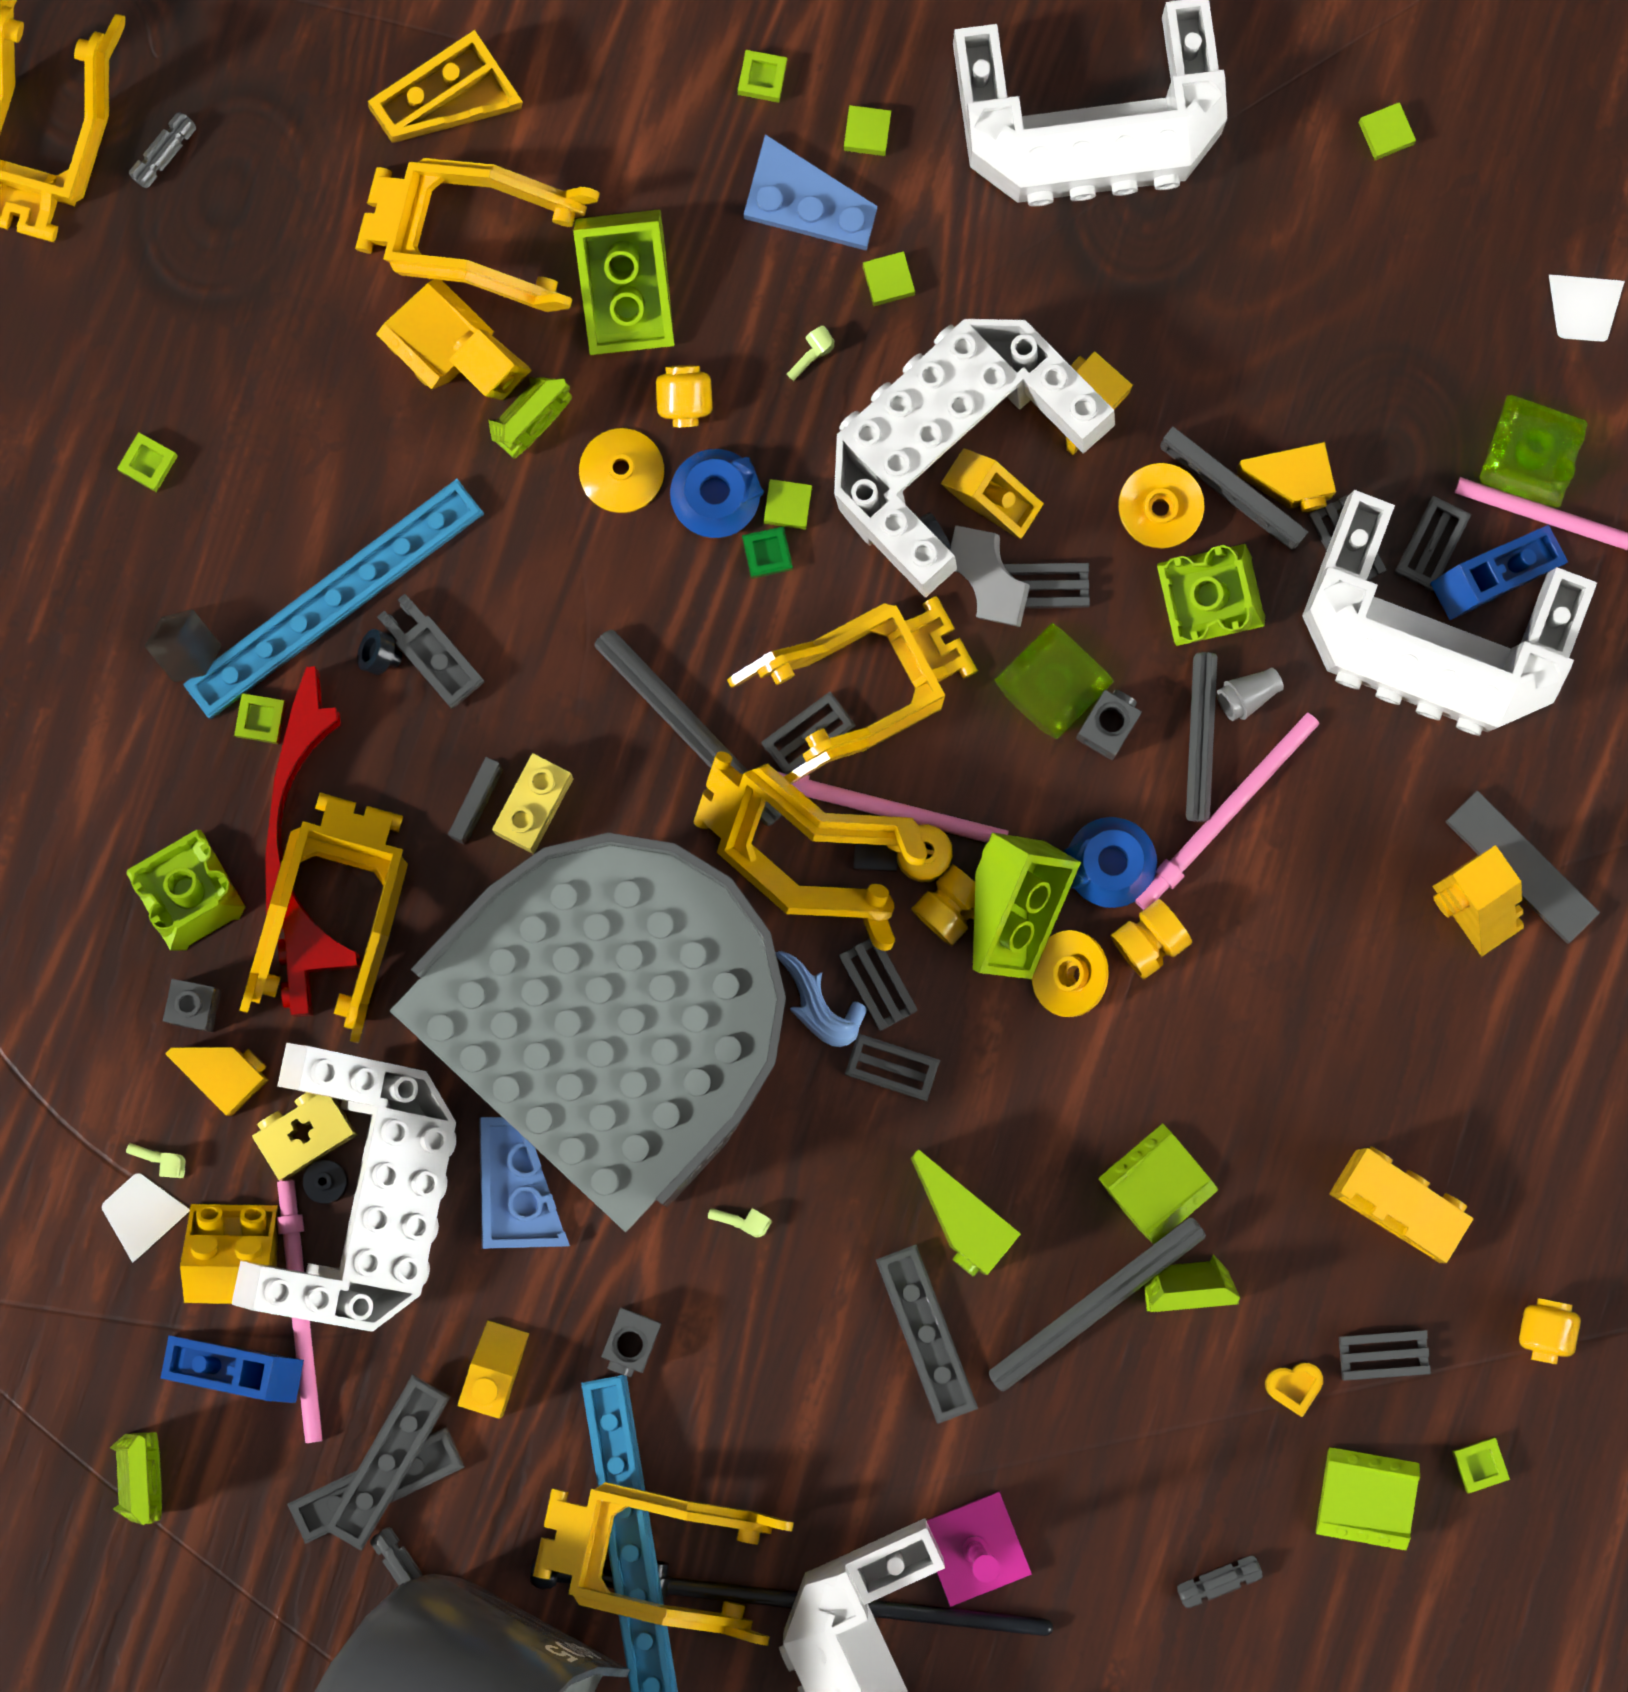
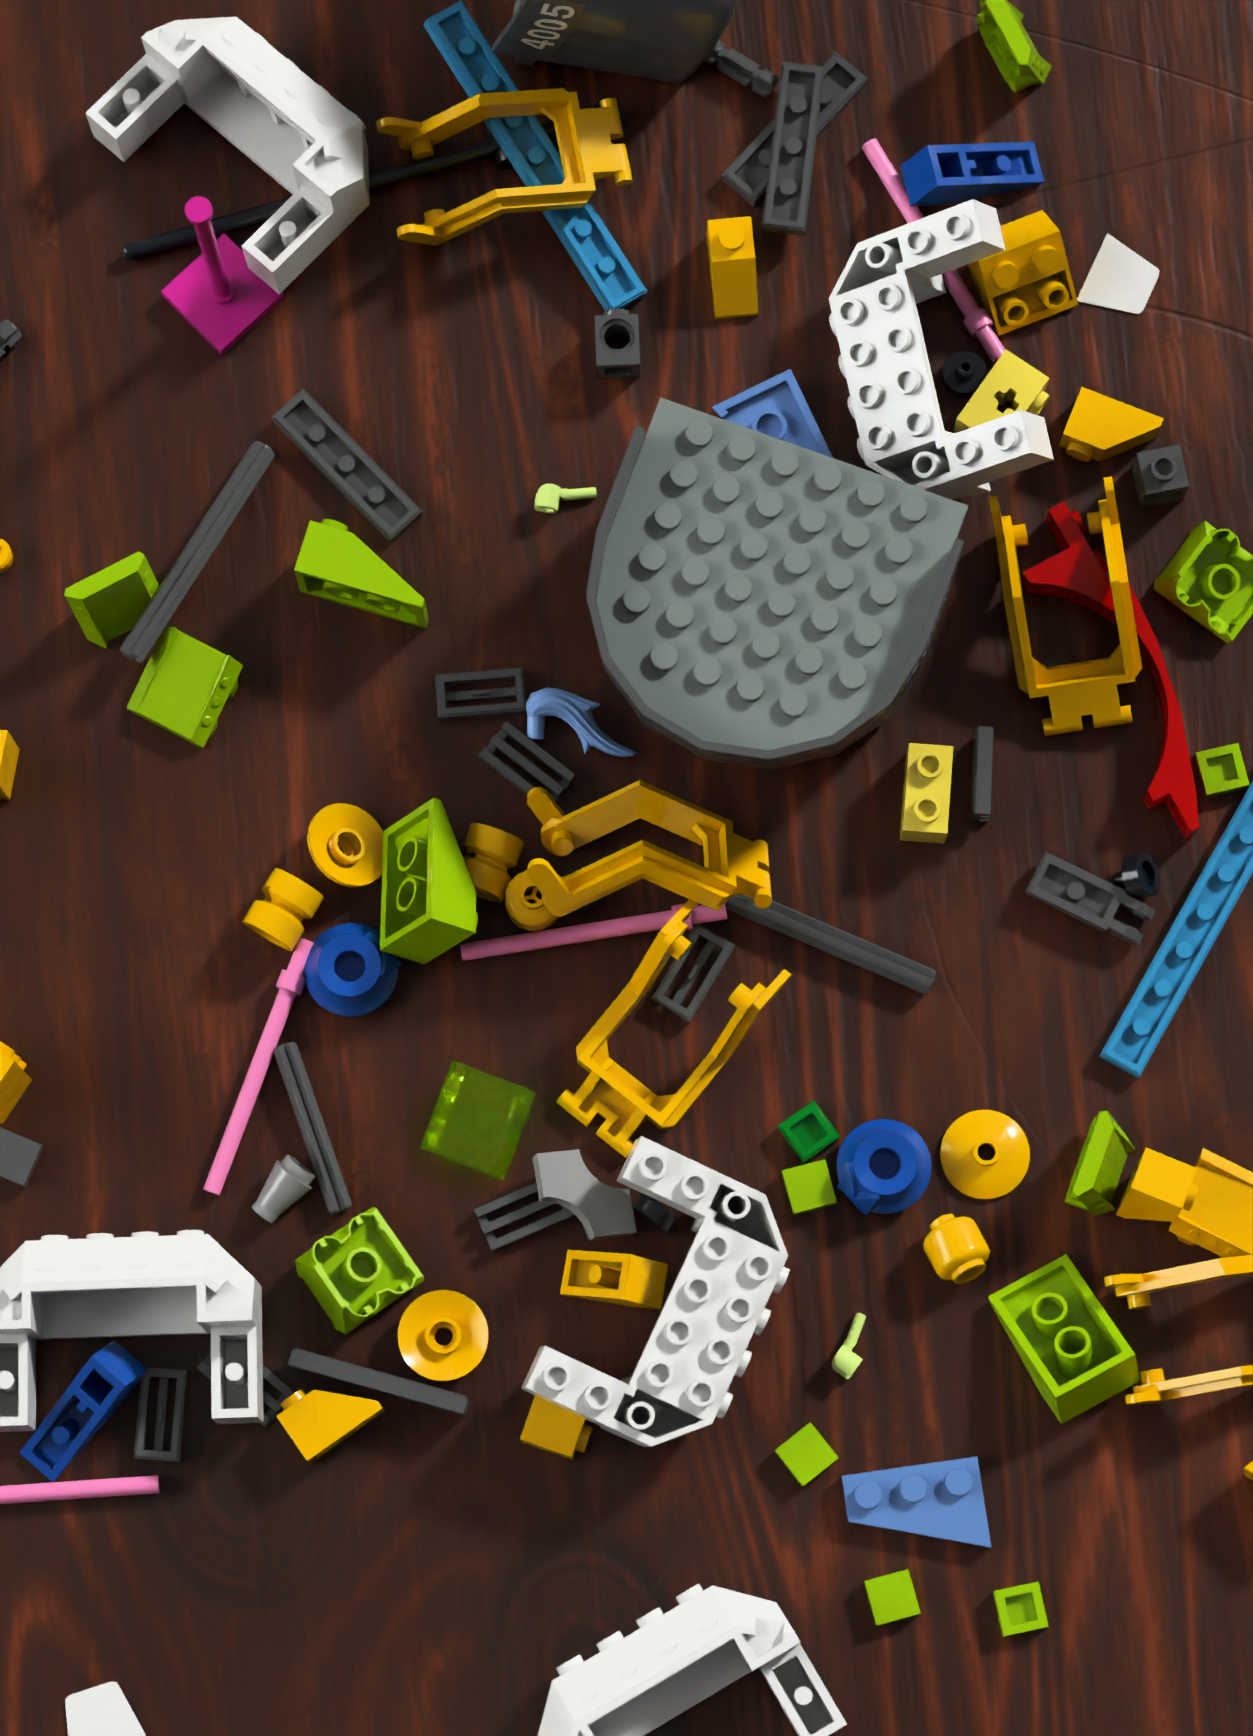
camera: 160 degrees right, 5 degrees down
(170, 1164) = (1112, 330): yellowish green hand -> none
(1109, 742) = (407, 1080): dark grey brick -> none
(1533, 451) = (95, 1548): clear neon green slope -> none

